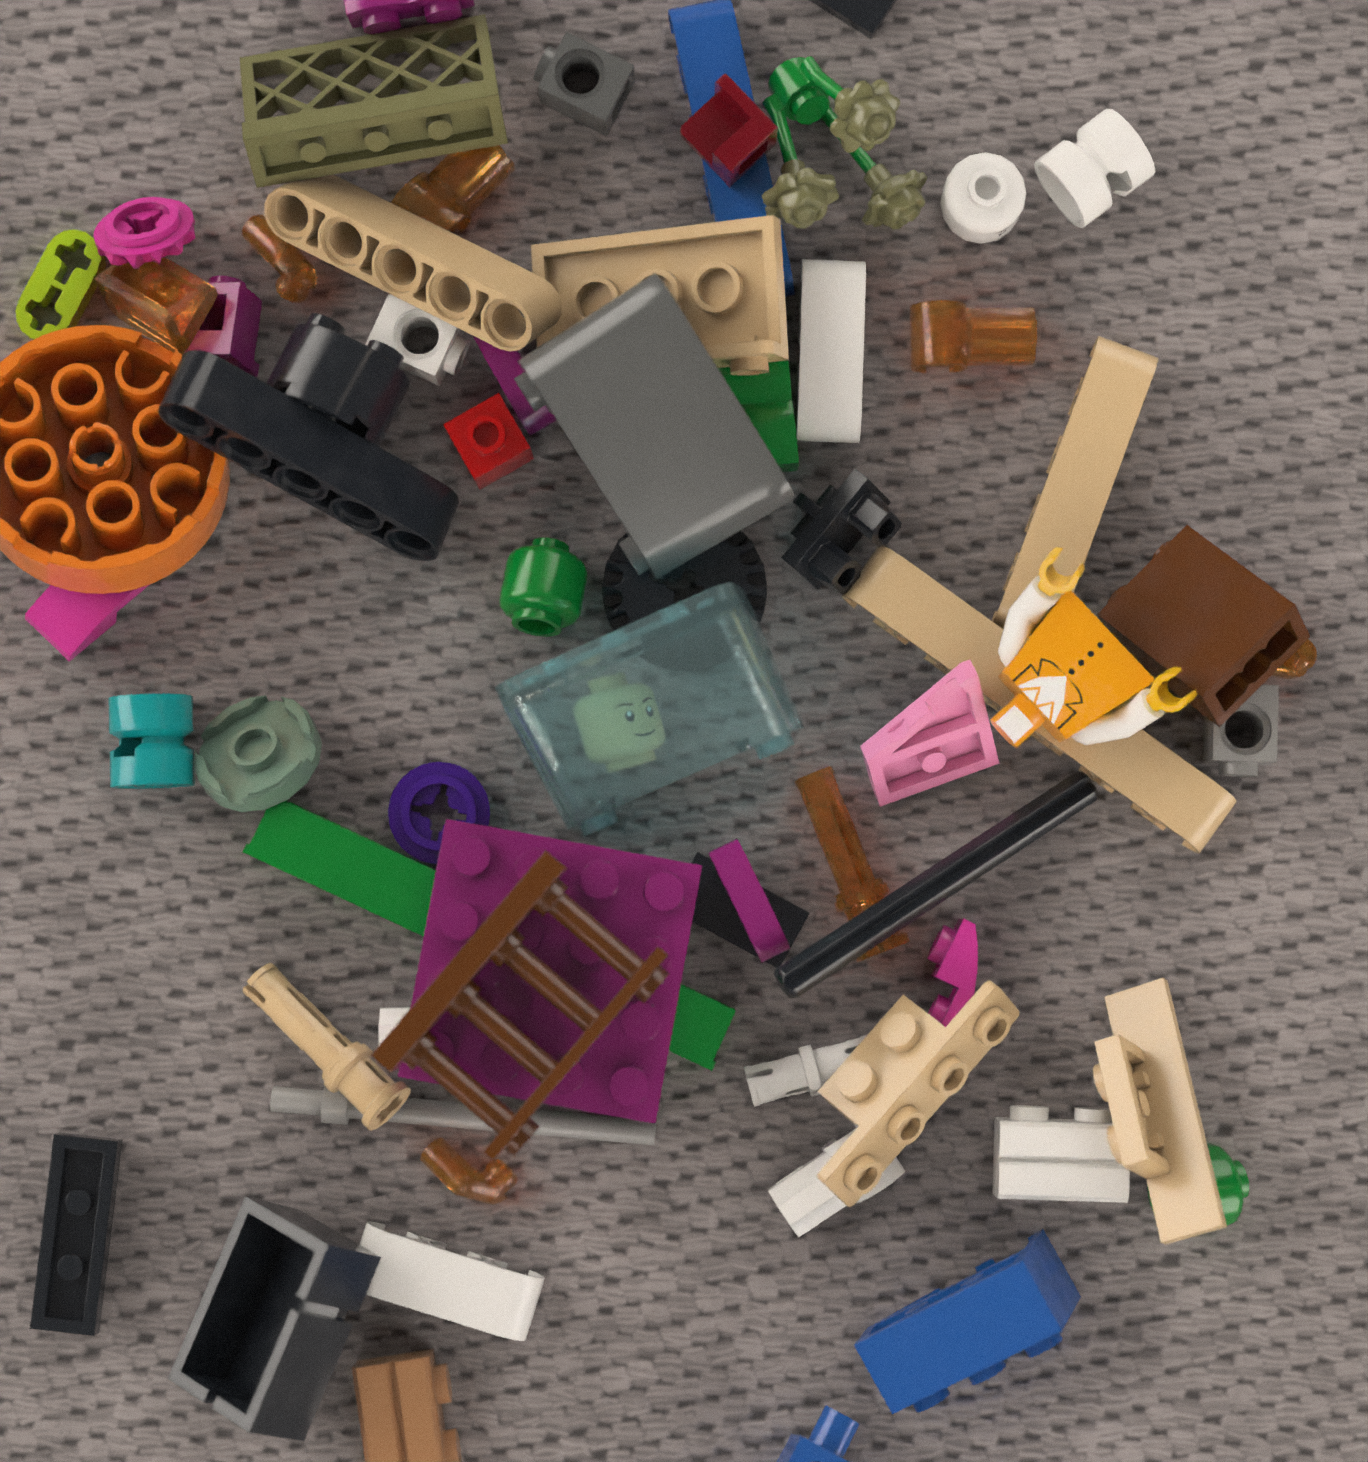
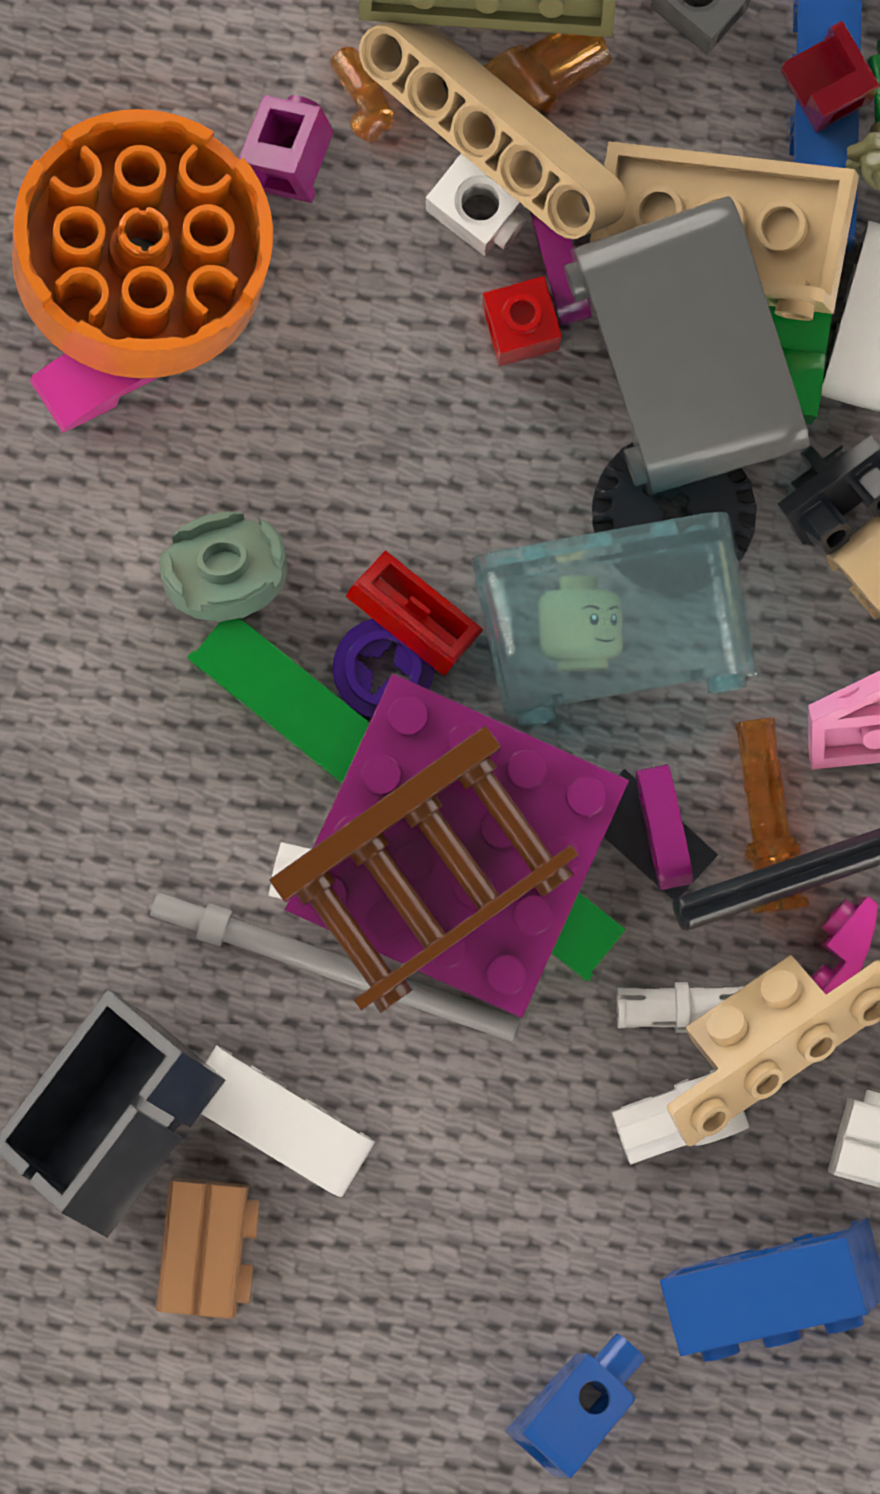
camera: 10 degrees right, 0 degrees up
(47, 280) = (131, 59): lime beam -> none
(144, 231) = (238, 35): dark pink gear -> none
(151, 741) = (123, 529): teal wheel -> none
(158, 300) = (235, 102): clear orange slope -> none
(308, 455) = (346, 291): black beam -> none
(342, 377) = (389, 229): black brick -> none
(344, 1064) = (233, 886): tan pin -> none
(452, 757) = (409, 618): none -> red tile
(463, 1179) = (320, 1028): clear orange arm -> none
(543, 587) = (538, 475): green head -> none

